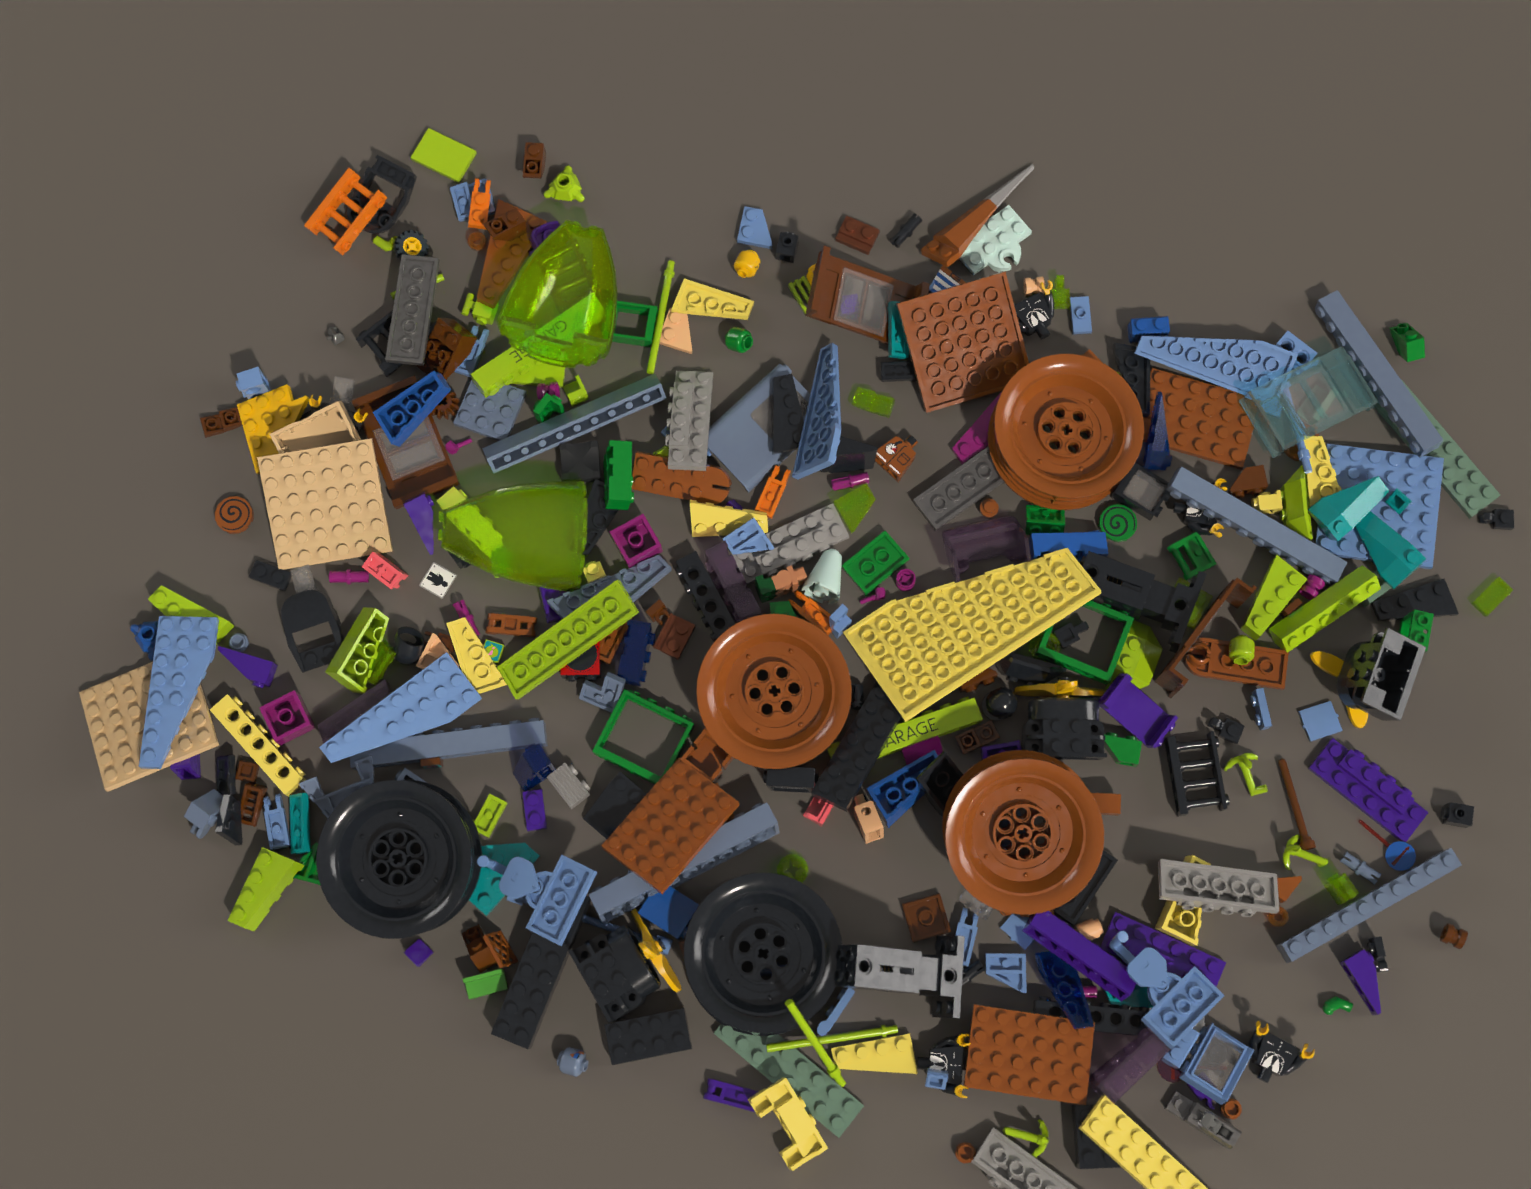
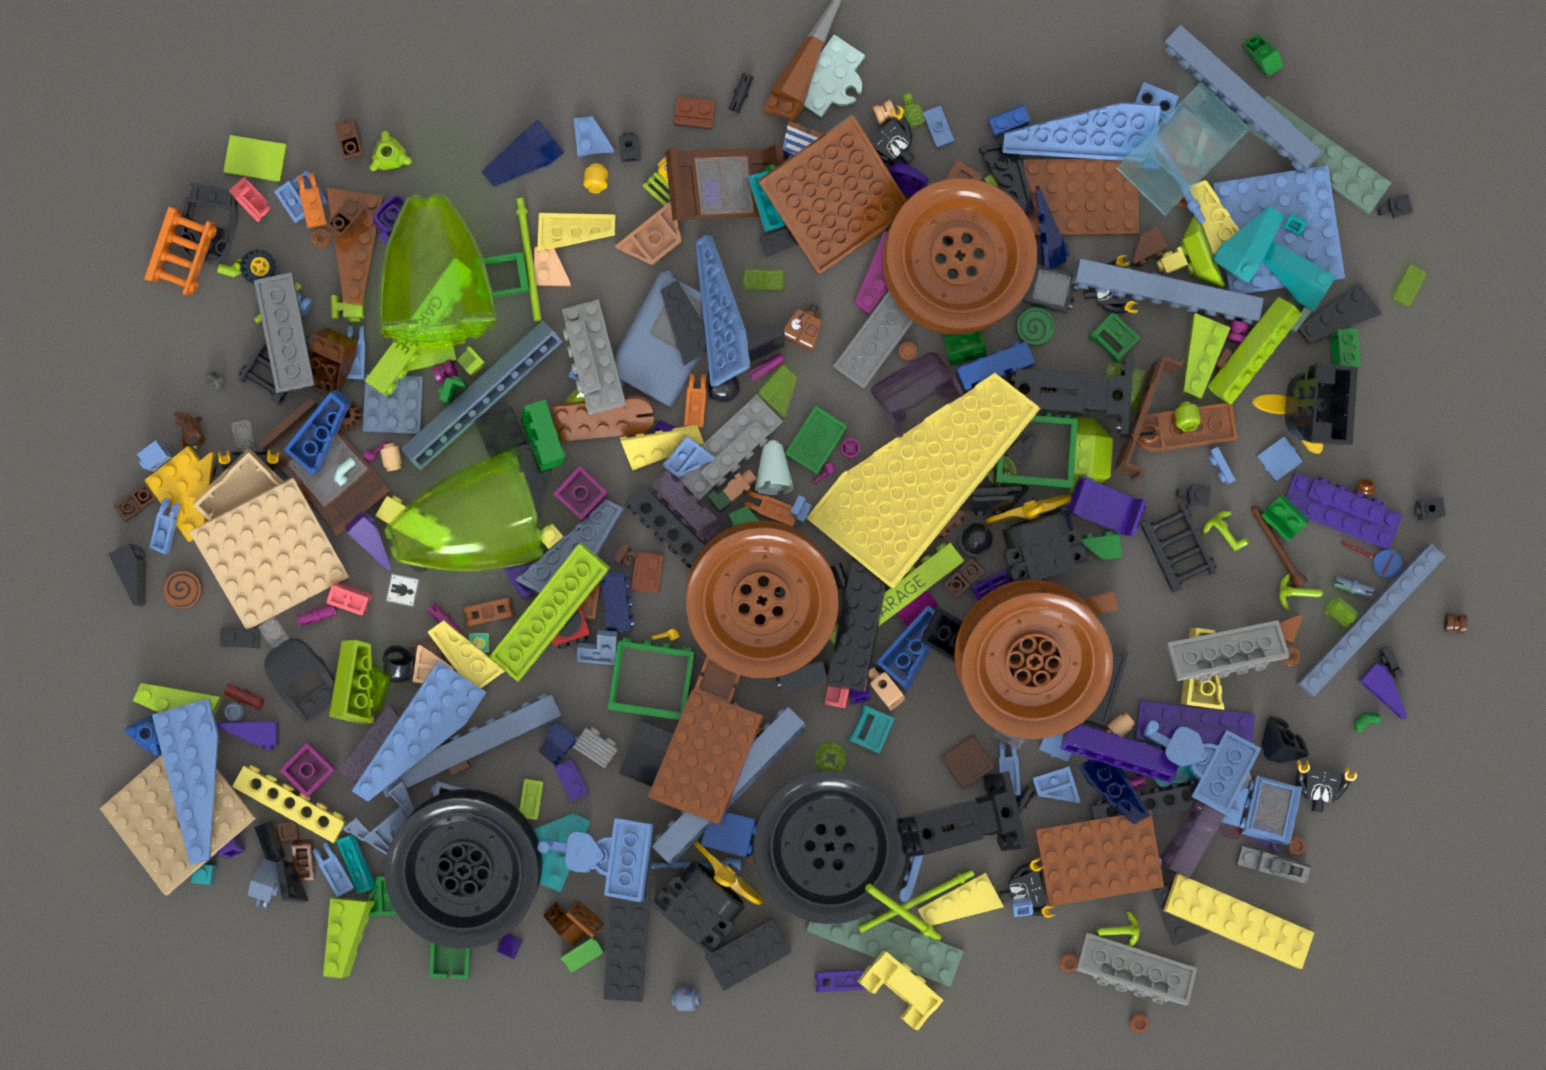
camera: 20 degrees left, 10 degrees up
(152, 785) = (205, 874): none -> teal brick
(193, 480) = (132, 571): none -> black slope
(239, 450) = (165, 527): none -> medium blue hinge
(253, 631) = (244, 696): none -> clear red pin
(296, 370) = (190, 429): none -> reddish brown piece
(356, 946) = (449, 960): none -> green piece
(420, 450) = (342, 469): none -> light aqua arm
(425, 185) = (250, 199): none -> coral hinge
(441, 293) = (304, 304): none -> medium blue wheel
(470, 454) = (391, 457): none -> light nougat brick
(678, 701) = (672, 634): none -> yellow hand
(690, 223) = (525, 154): none -> clear blue wedge
(738, 340) = (613, 259): green head -> none
(783, 332) = (653, 238): none -> nougat wing
(804, 488) = (724, 392): none -> black helmet
(840, 817) = (859, 697): none -> dark purple tile
(846, 859) = (877, 732): none -> teal plate
(1036, 347) = (908, 178): none -> dark purple piece
(1245, 1000) = (1280, 743): none -> black slope
(1310, 778) = (1284, 517): none -> green bracket
(1399, 773) = (1365, 486): none -> dark orange plate

